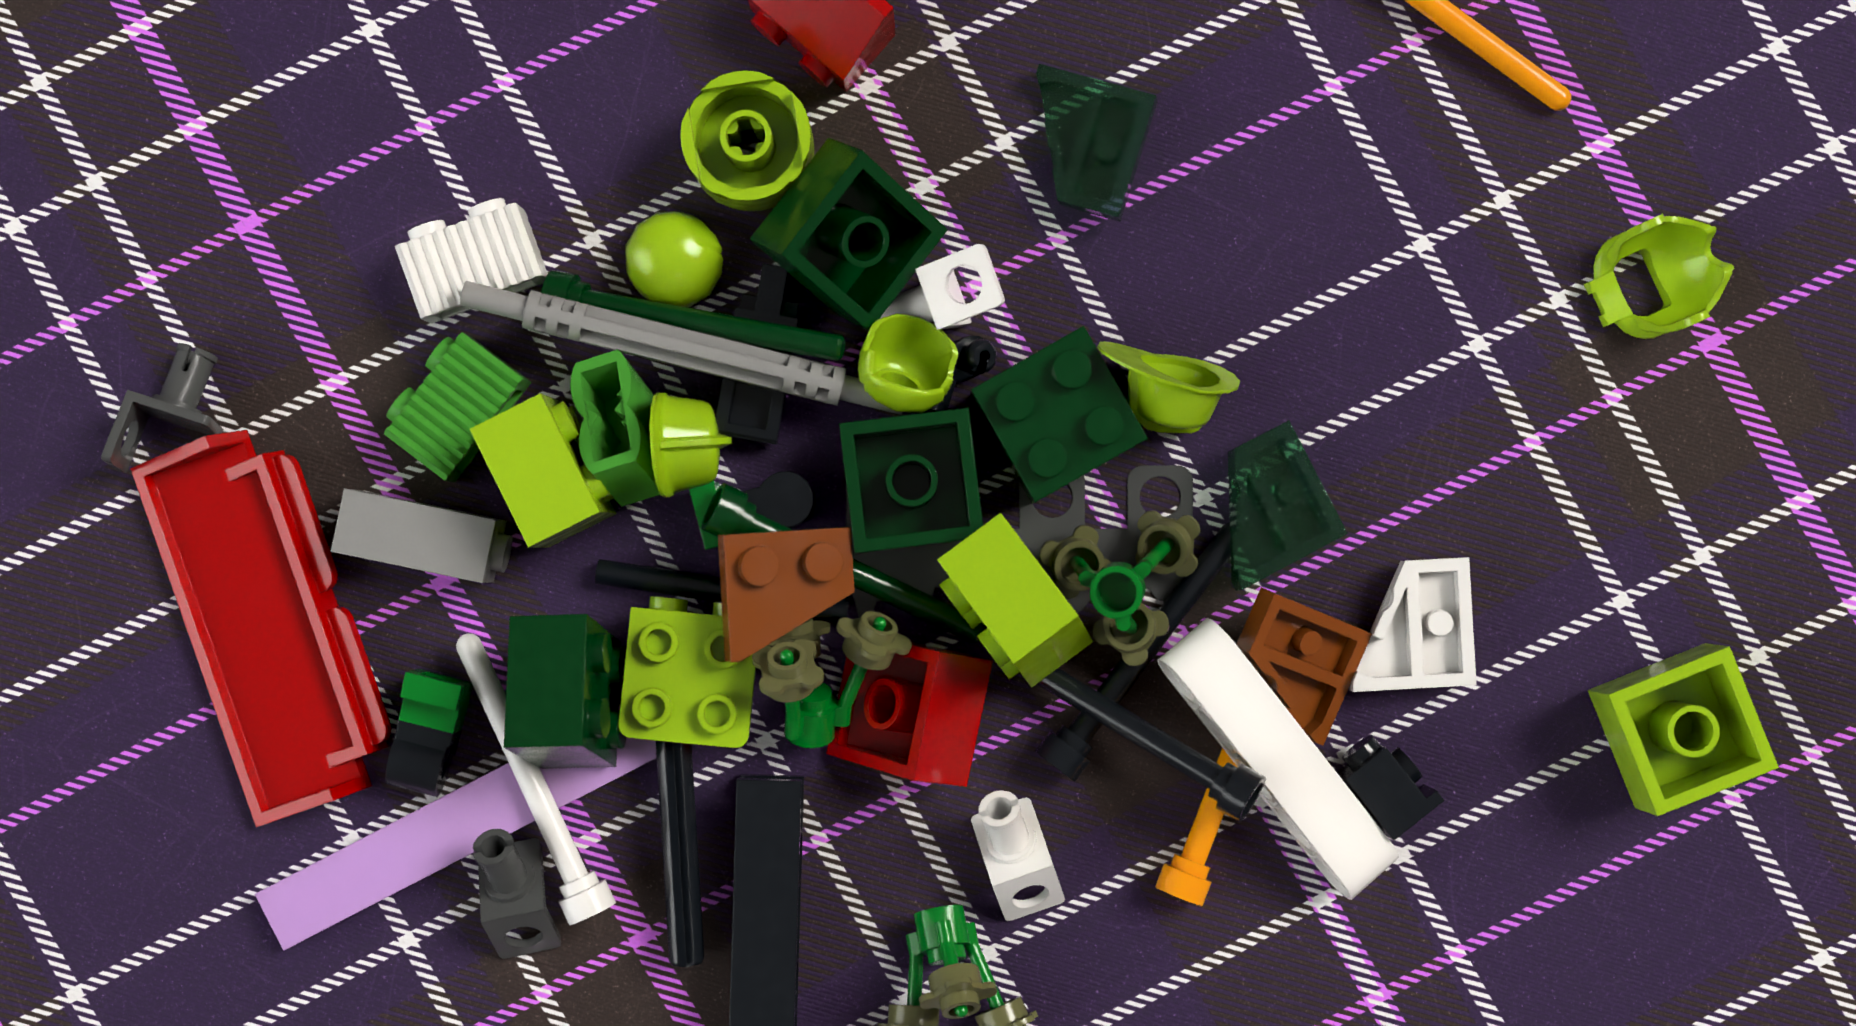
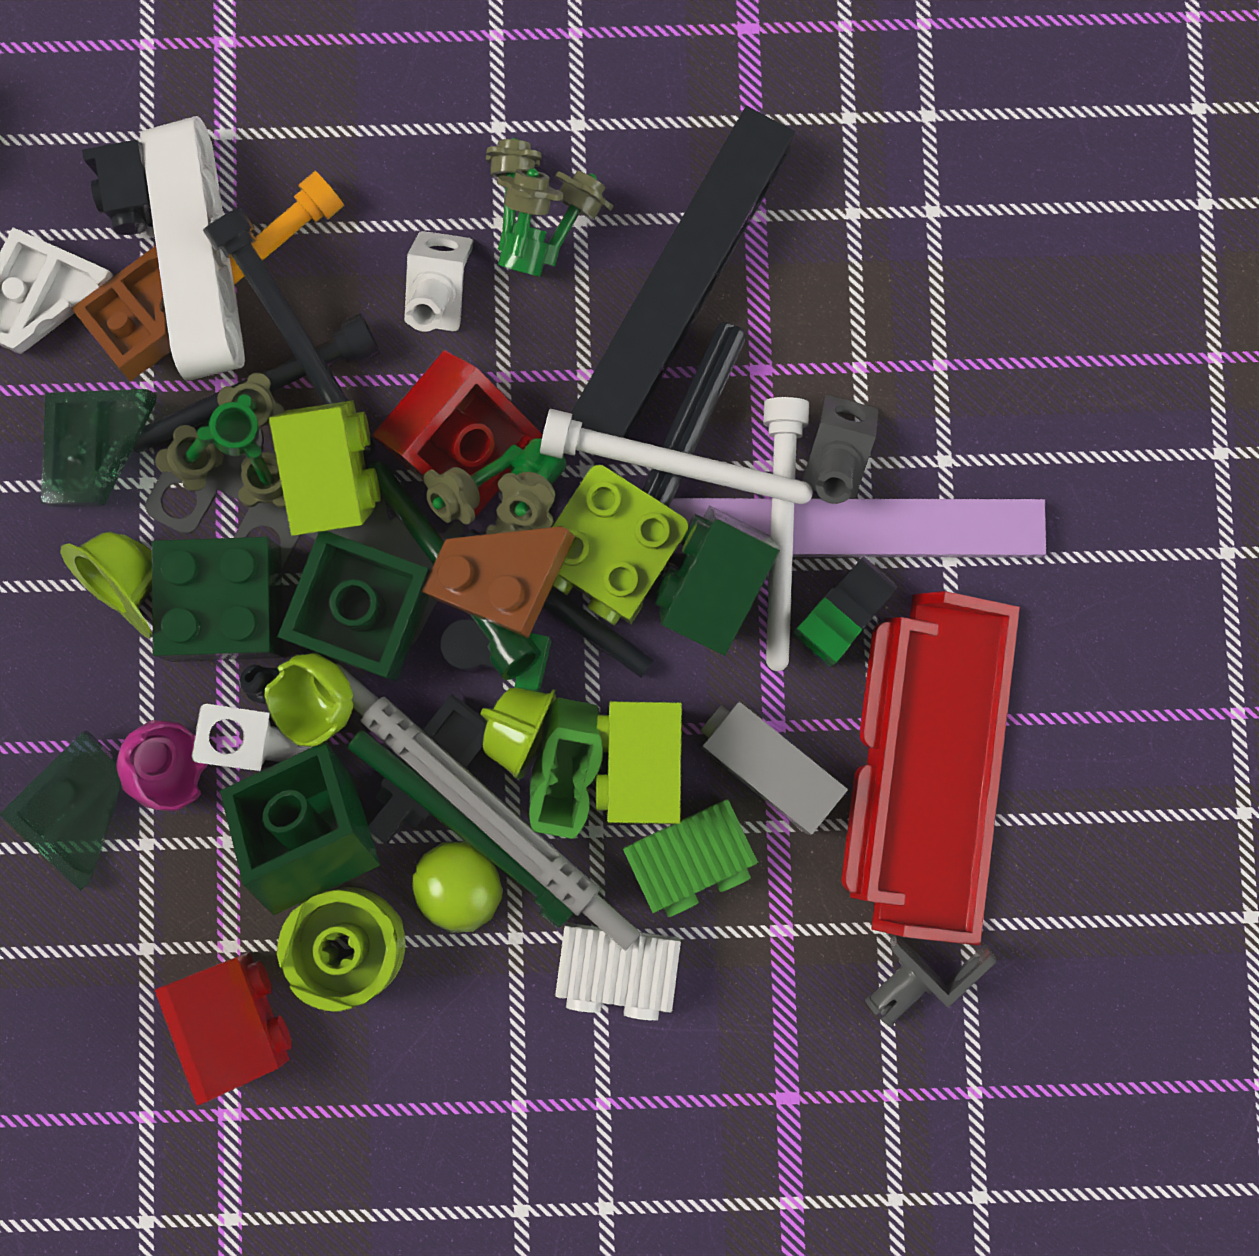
camera: 155 degrees left, 5 degrees down
(789, 759) = (566, 436): none -> white piece
(1023, 223) = (159, 766): none -> dark pink hair

